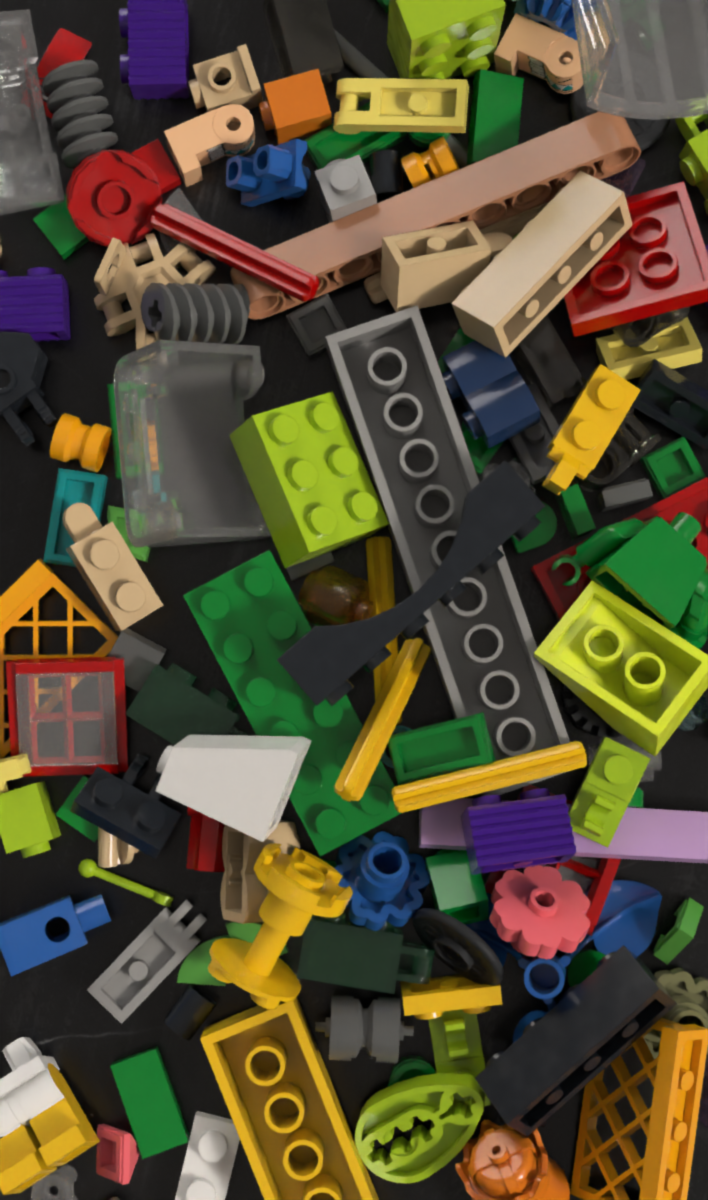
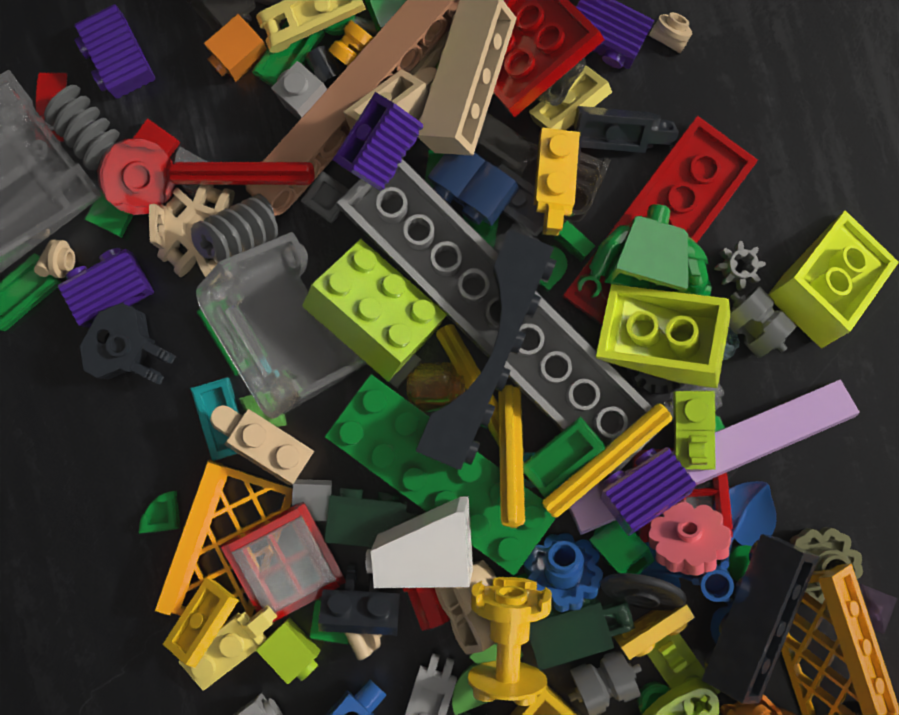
camera: 25 degrees left, 0 degrees up
(80, 441) = (197, 362): light orange wheel -> none
(88, 868) = (352, 664): lime hinge -> none
(209, 138) = (184, 100): light nougat leg -> none
(241, 89) = (189, 61): tan brick -> none
(269, 173) = (240, 105): blue hips -> none
(404, 291) = (378, 141): none -> dark purple brick
(623, 495) = (603, 213): dark grey tile -> none
(672, 468) = (627, 177): green tile -> none
(681, 934) = (796, 503): bright green tile -> none

